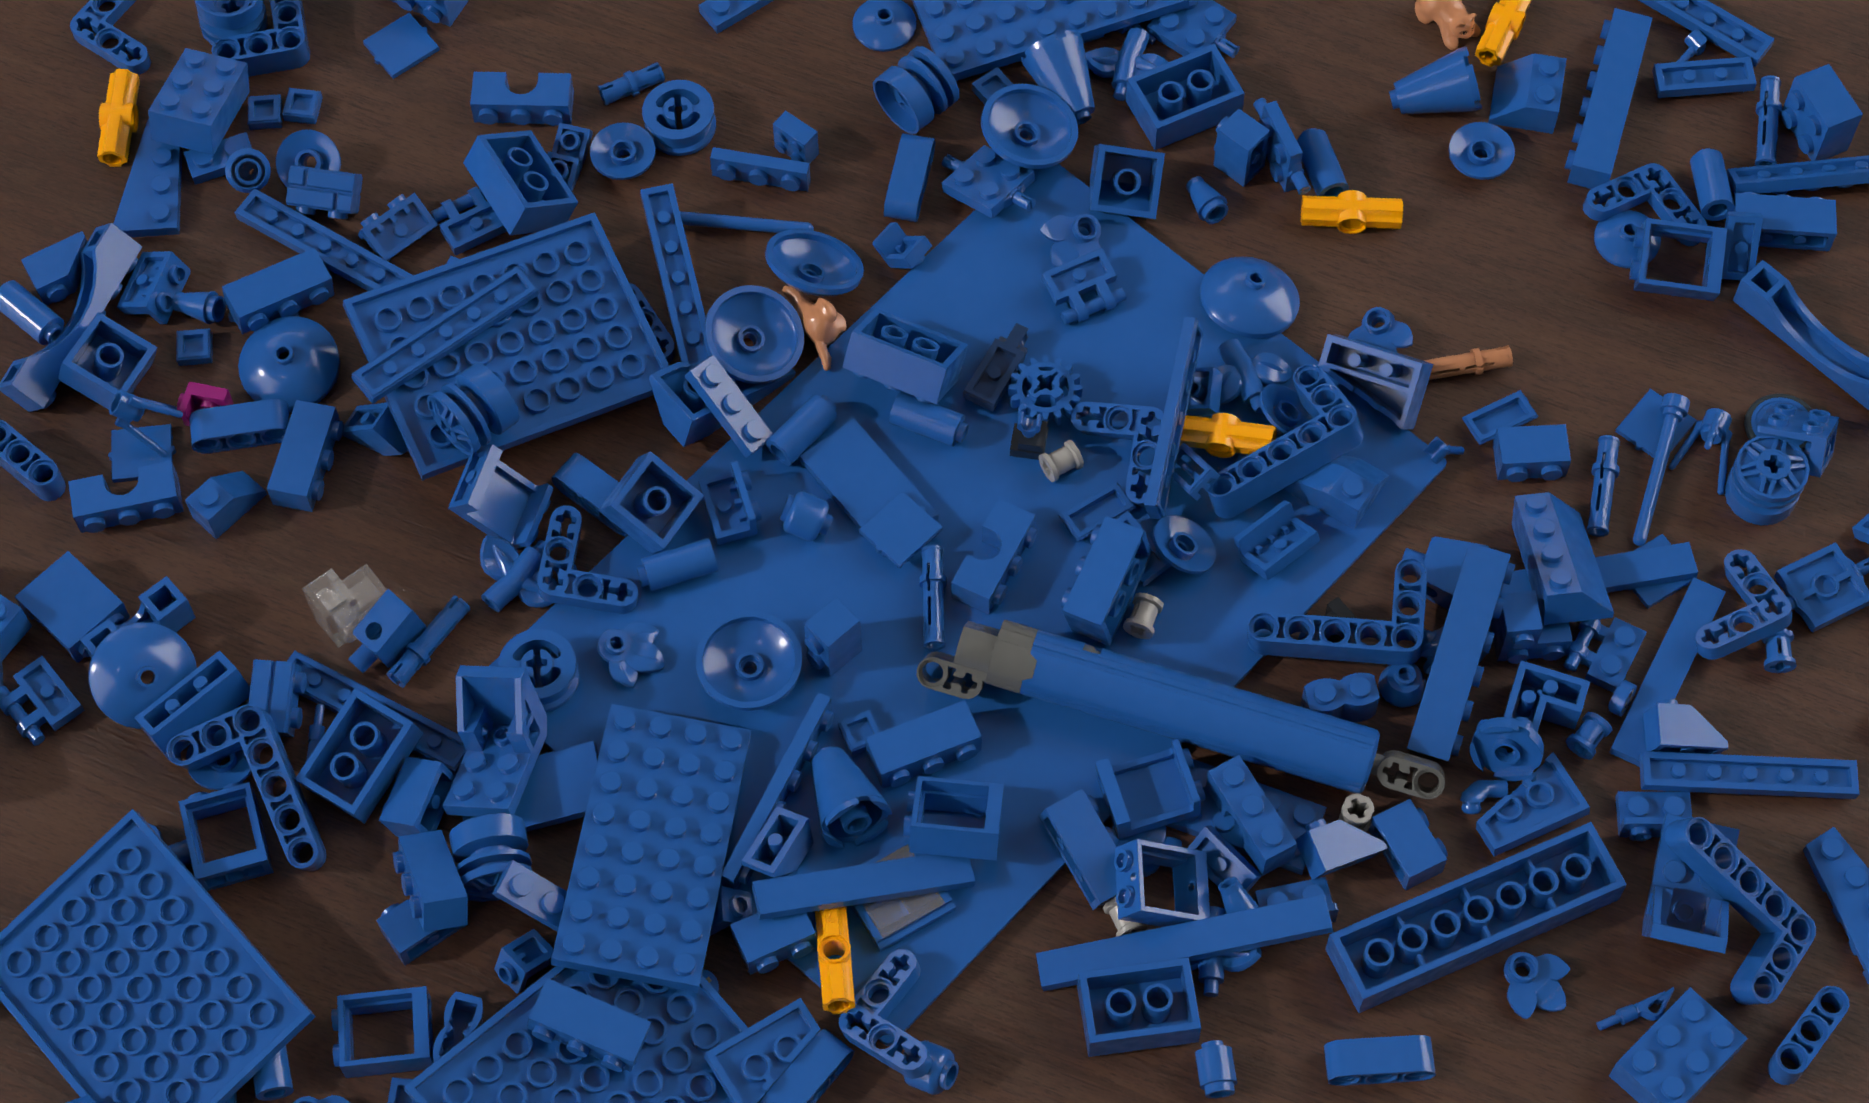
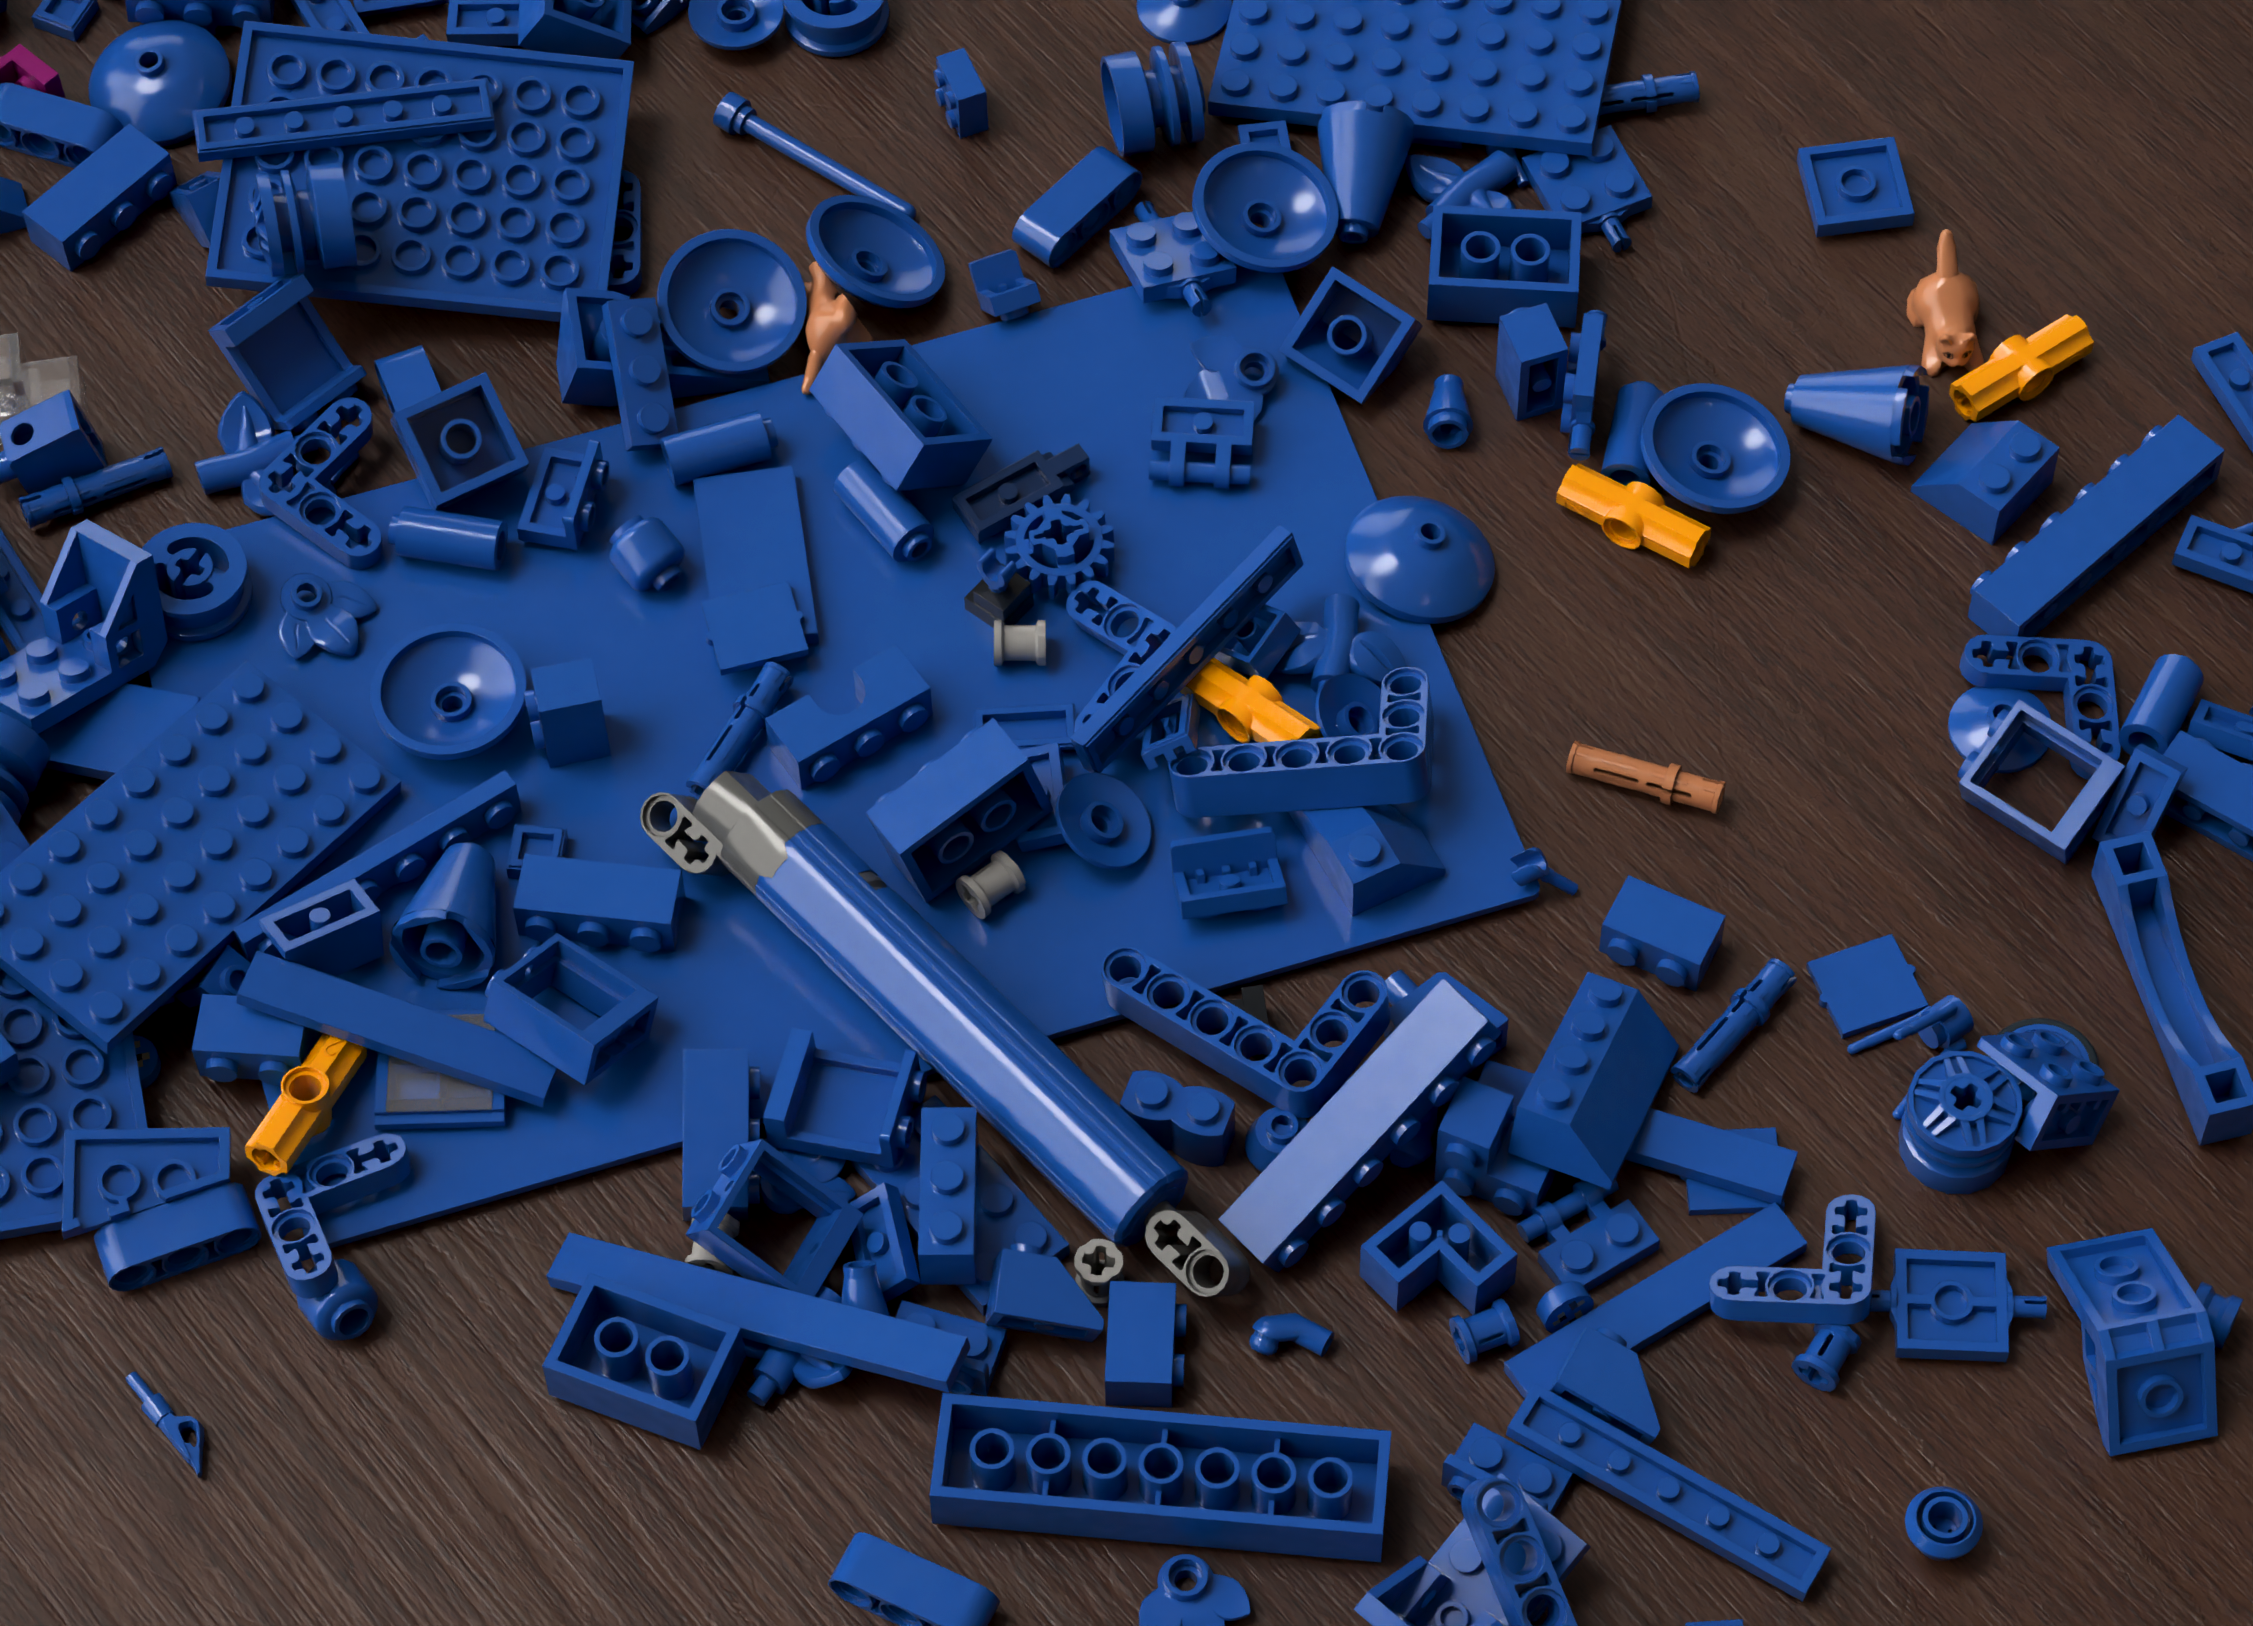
camera: 30 degrees right, 5 degrees down
(676, 272) = (698, 169): blue plate -> none
(760, 169) = (893, 111): blue plate -> none
(1216, 1069) = (694, 1492): blue brick -> none
(1376, 150) = (1720, 431): none -> blue dish
(1380, 376) = (1515, 735): blue wedge -> none
(1389, 336) = (1558, 692): blue plate -> none
(1483, 140) = (1870, 502): blue dish -> none
(1507, 412) = (1669, 868): blue tile -> none
(1509, 732) = (1370, 1296): blue plate -> none
(1533, 809) = (1350, 1387): blue wing -> none
(1673, 409) = (1899, 972): blue piece -> none

